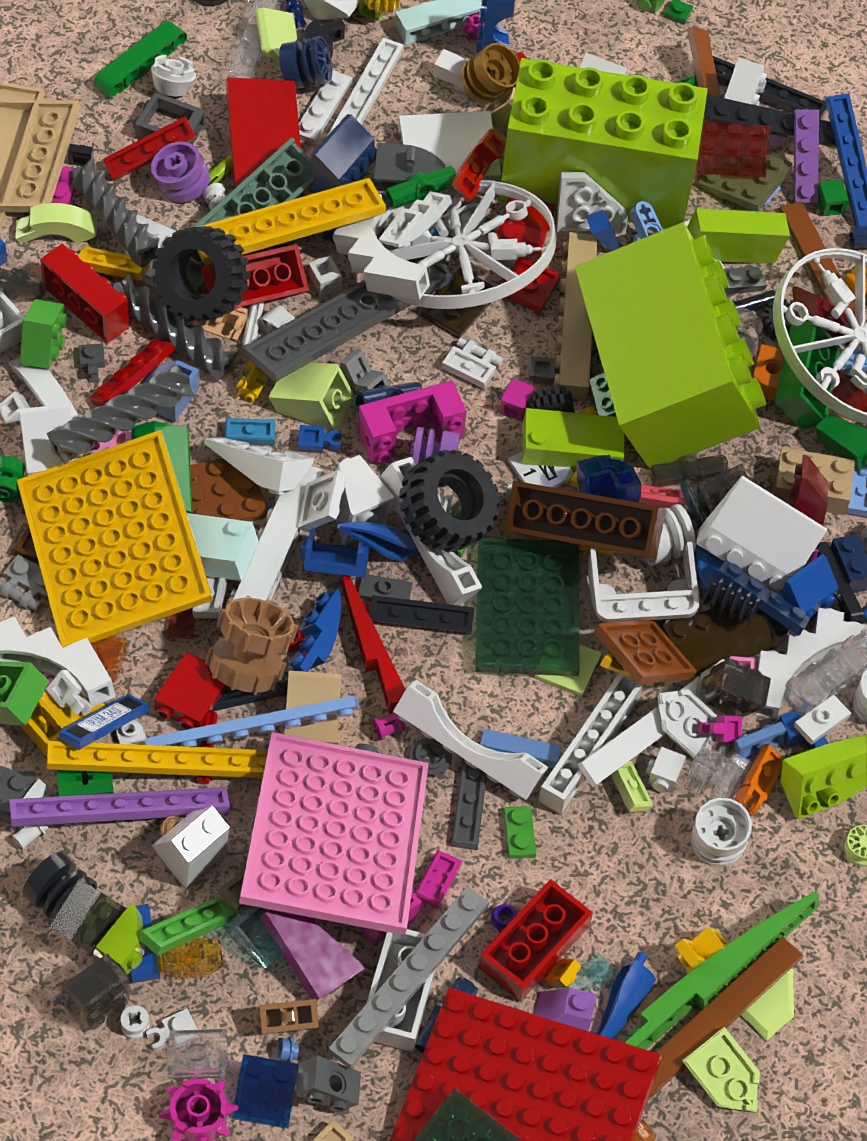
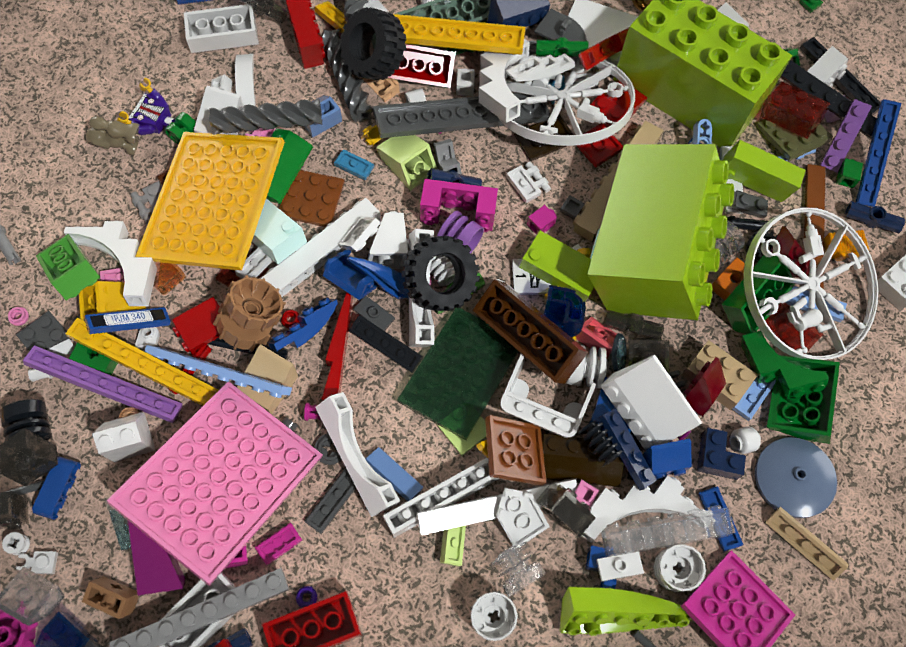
camera: 30 degrees right, 10 degrees up
(42, 334) = (258, 43): bright green brick -> none
(65, 692) = (114, 288): white plate -> none
(92, 358) = (286, 74): dark grey plate -> none
(123, 940) = (36, 485): lime slope -> none
(133, 372) = (309, 92): red plate -> none
(186, 926) = (76, 495): bright green plate -> none
(194, 960) = (74, 516): clear yellow brick -> none
(252, 324) = (399, 96): white axle -> none
(267, 469) = (342, 191): white wedge -> none
(287, 1049) = (99, 620): medium blue plate -> none
(314, 439) = (391, 187): blue plate -> none
(520, 832) = (357, 537): bright green plate -> none
(552, 399) = (563, 233): black tyre -> none
(581, 197) = (667, 108): white plate -> none
(602, 229) = (669, 128): blue slope -> none
(665, 770) = (484, 544): white brick -> none
(703, 60) = (807, 41): dark orange tile -> none
(726, 729) = (546, 536): dark pink plate -> none
(750, 744) = (573, 556): medium blue plate -> none
(760, 779) = (549, 586): orange hinge -> none
(847, 600) = (693, 481): black beam -> none

